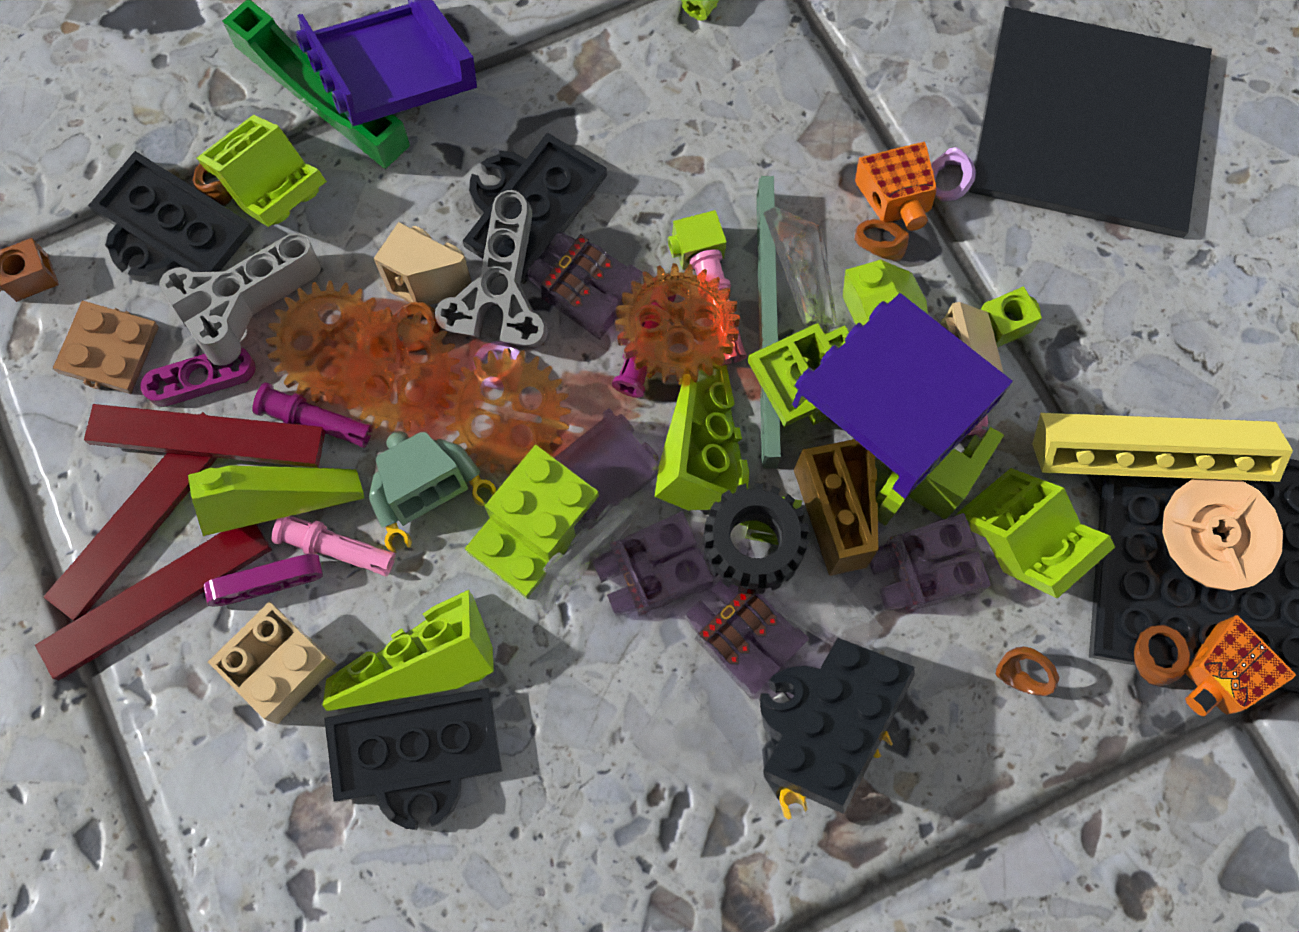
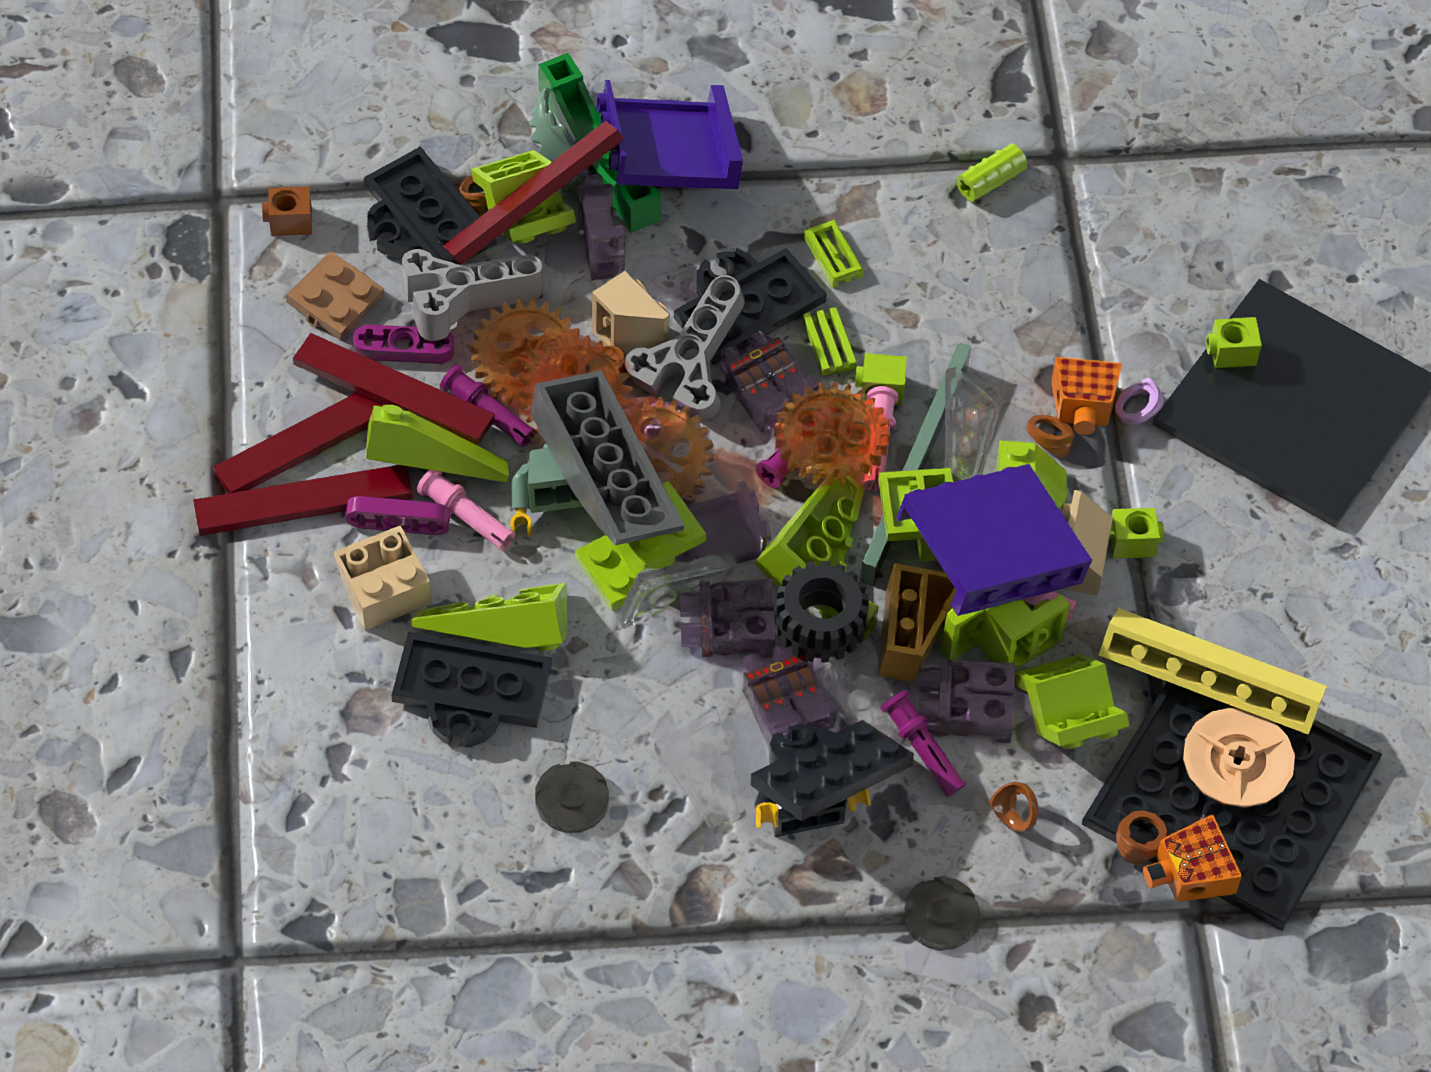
camera: 20 degrees right, 15 degrees down
(269, 165) = (533, 192): none -> dark red tile
(275, 100) = (553, 137): none -> sand green plant
(362, 192) = (602, 241): none -> clear purple hips
(463, 456) = (603, 458): none -> dark grey slope
(570, 840) = (572, 797): none -> clear smoke tile
(584, 130) = (843, 274): none -> lime tile
(611, 195) = (822, 319): none -> lime tile
(890, 628) = (913, 728): none -> magenta pin
(999, 821) = (941, 913): none -> clear smoke tile
(1032, 80) = (1244, 346): none -> lime brick

